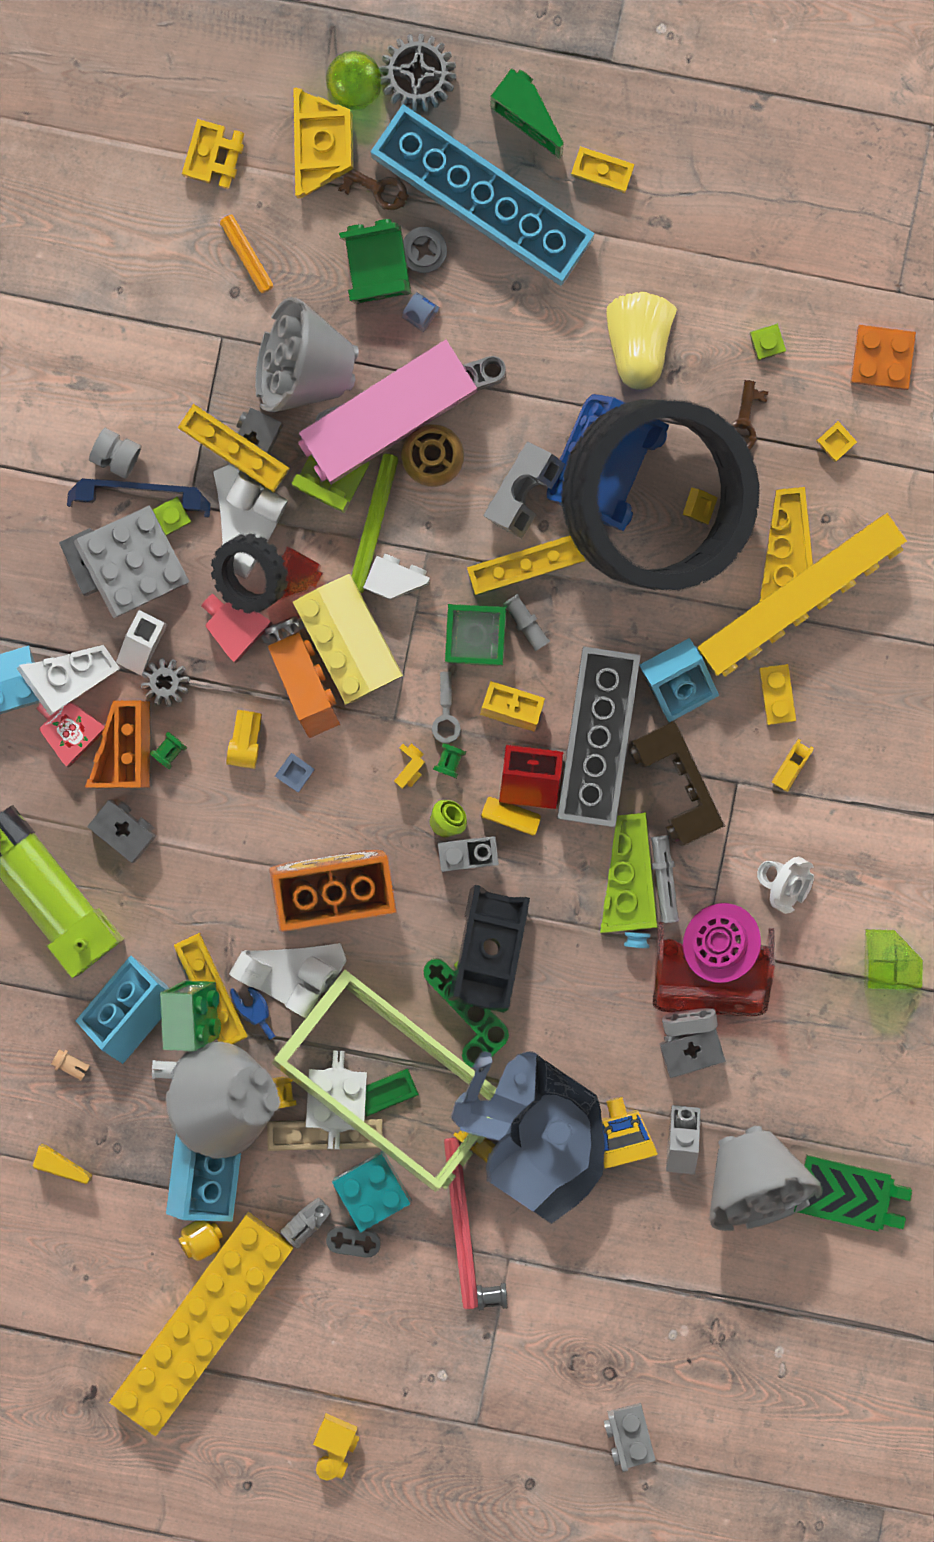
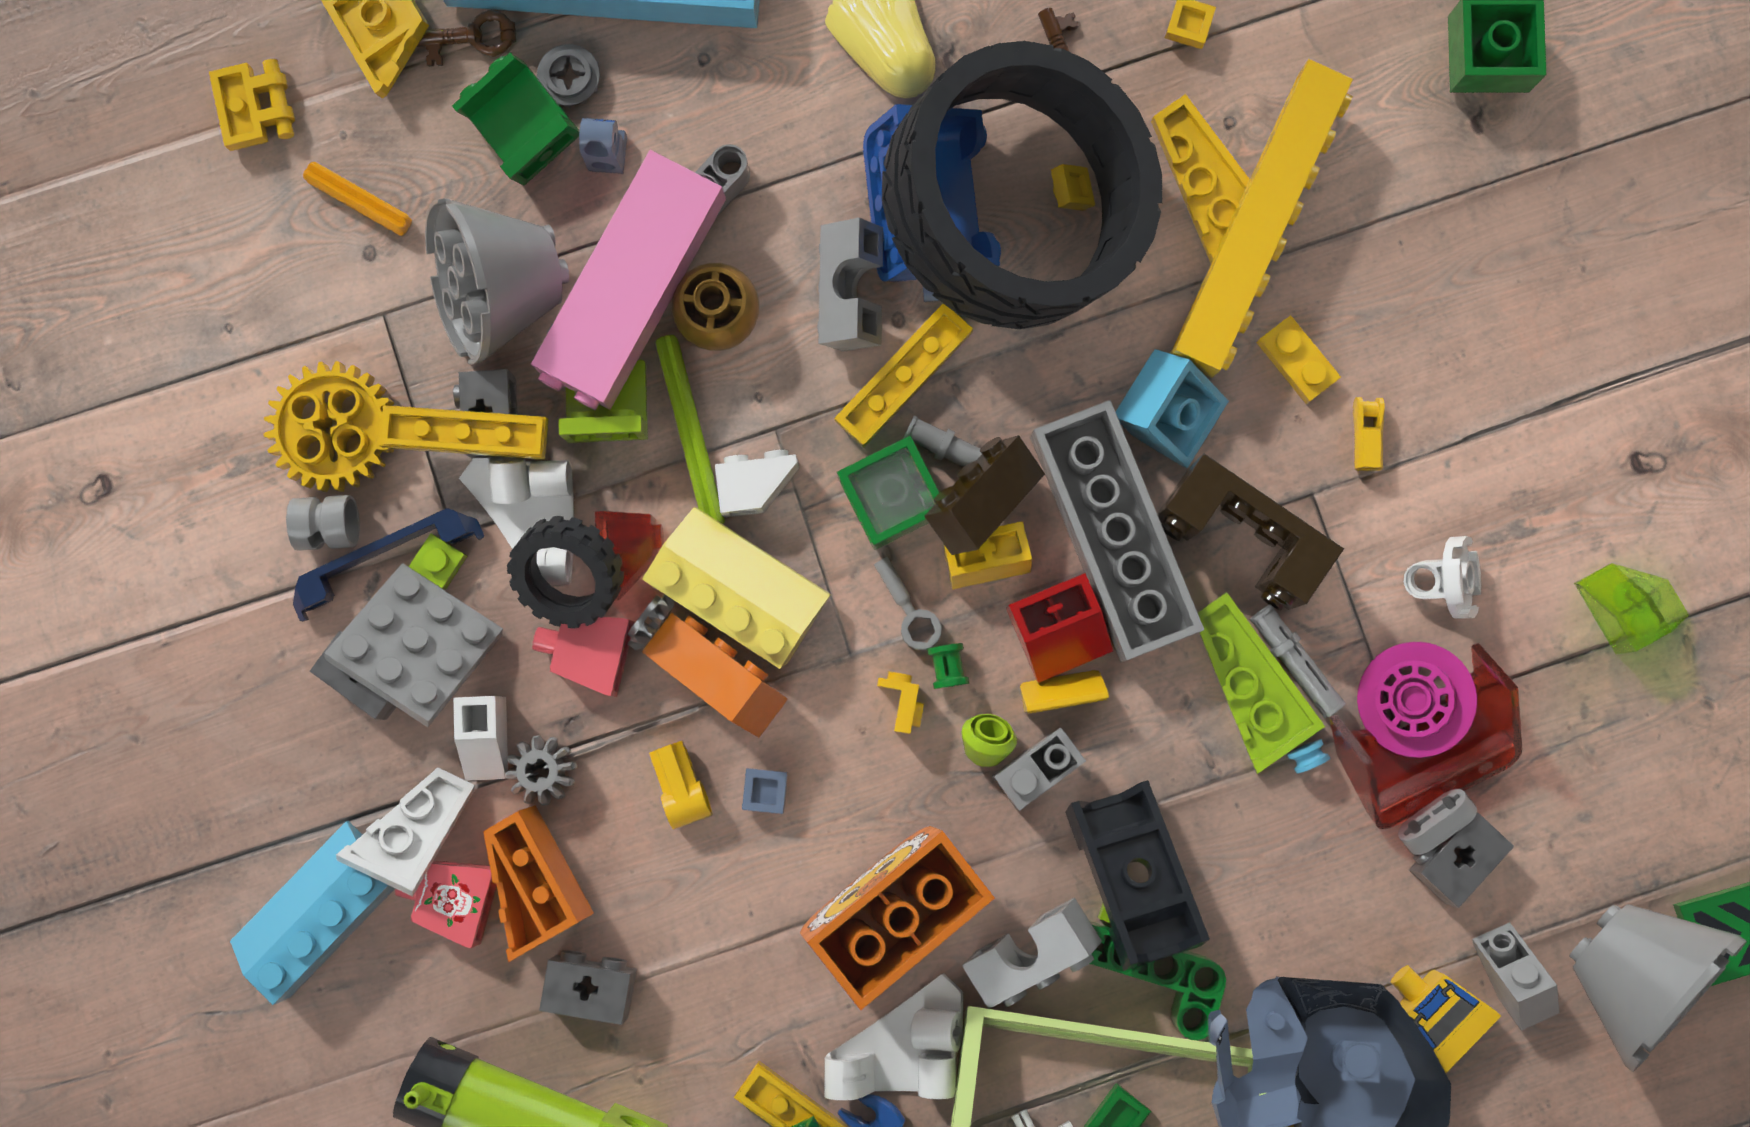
camera: 25 degrees left, 5 degrees down
(127, 385) = (295, 434): none -> yellow gear
(168, 750) = (591, 853): green bush -> none
(421, 961) = (1062, 940): none -> light grey arch
(530, 669) = (984, 494): none -> dark brown brick

